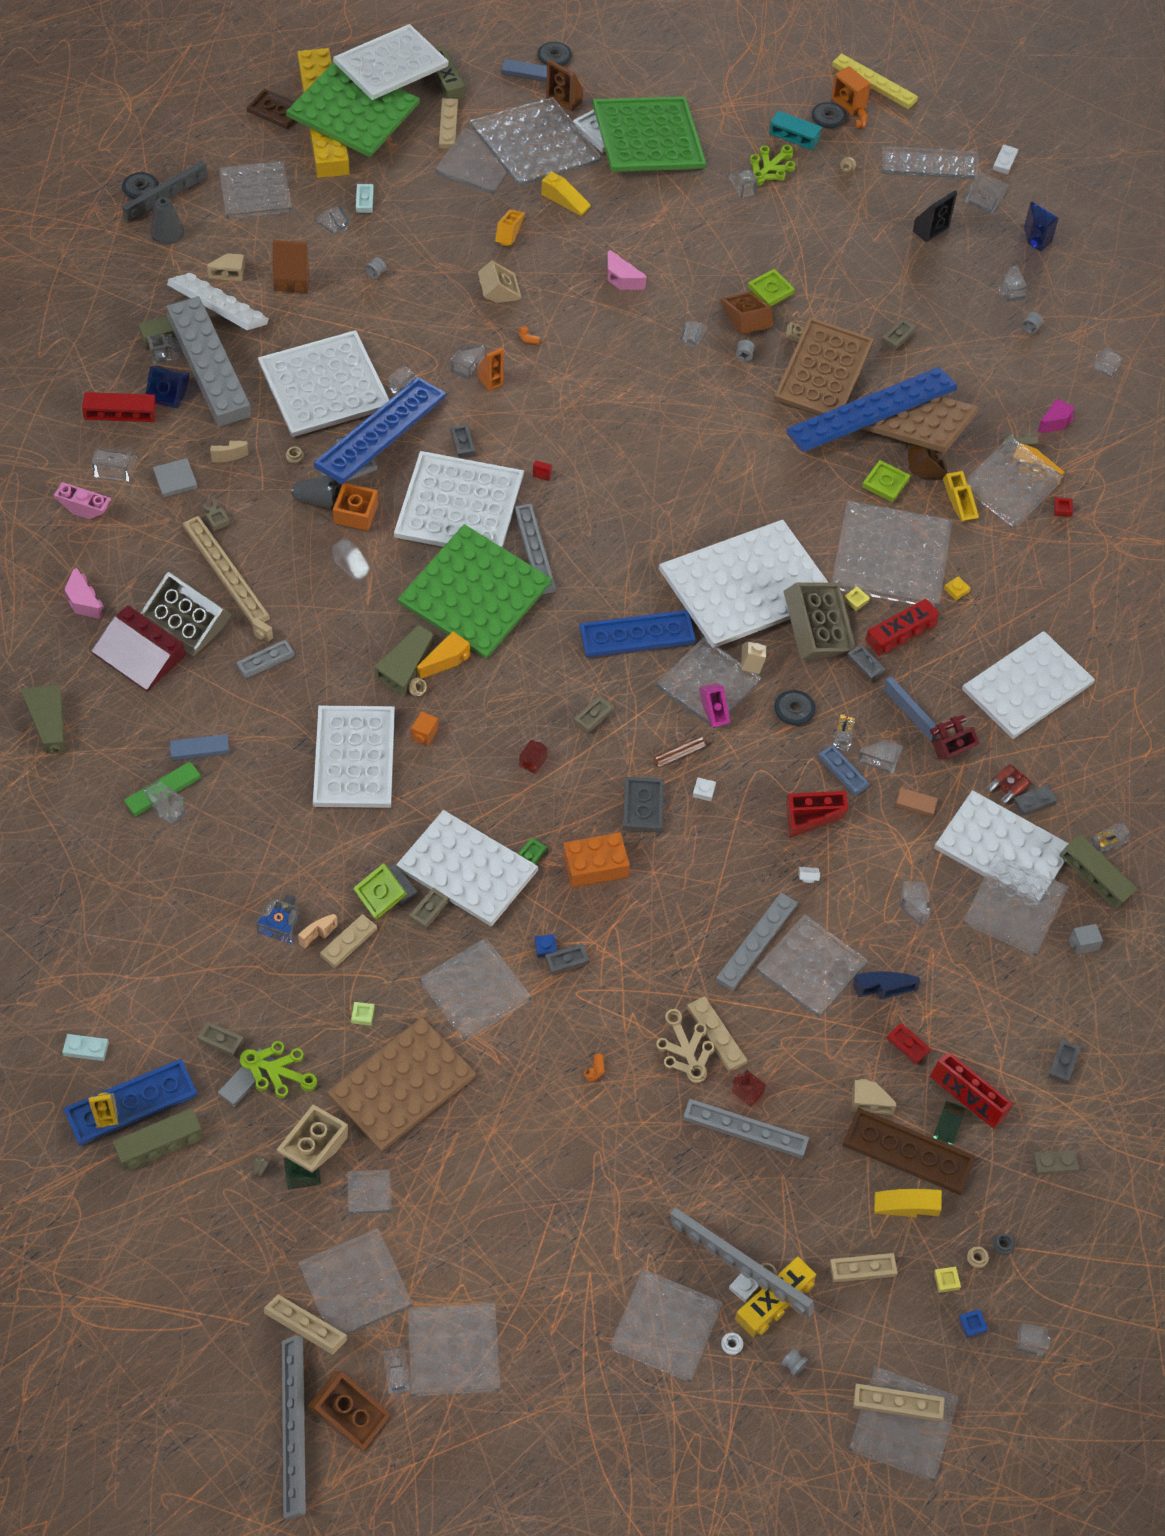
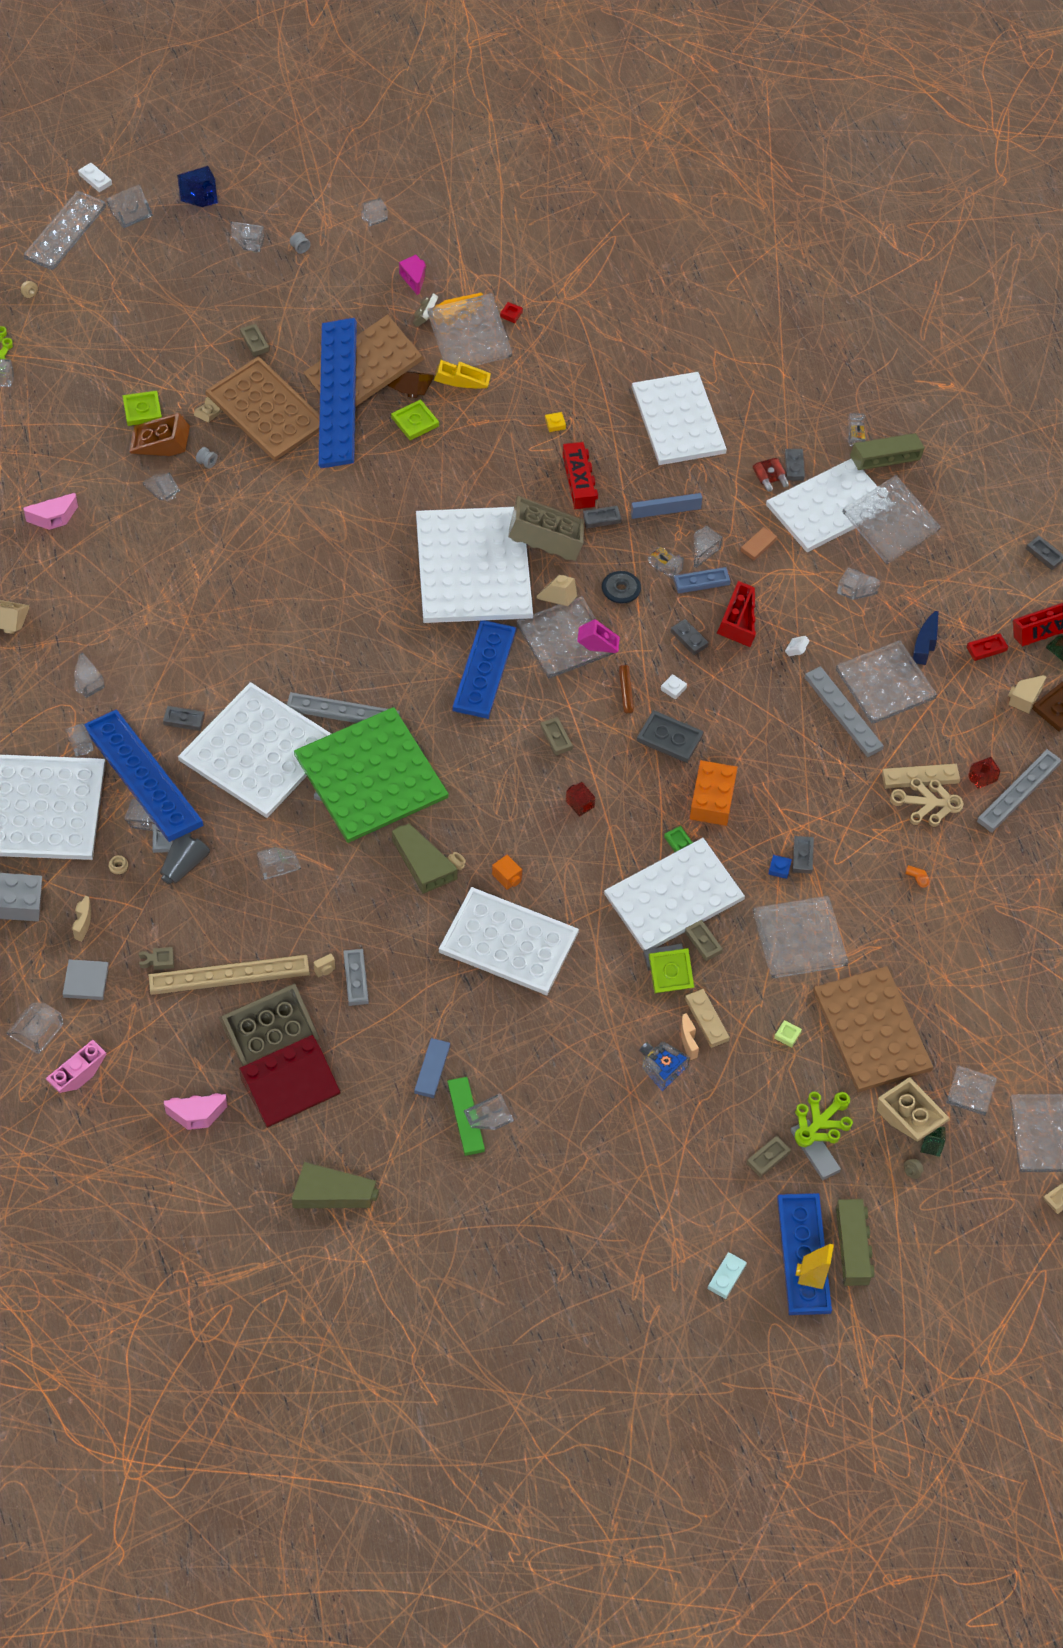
camera: 65 degrees left, 0 degrees up
(355, 506) = (221, 832): orange brick -> none
(445, 656) = (430, 819): light orange slope -> none
(492, 369) = (115, 658): orange slope -> none
(526, 337) = (83, 619): orange arm -> none
(542, 470) = (257, 668): red plate -> none
(769, 782) = (689, 637): none -> flat silver plate
(856, 598) = (531, 493): light yellow plate -> none
(892, 553) = (494, 451): clear plate -> none
(935, 218) = (140, 252): black slope -> none
(955, 742) = (716, 488): dark red brick -> none
(1085, 939) = (942, 488): light grey brick -> none

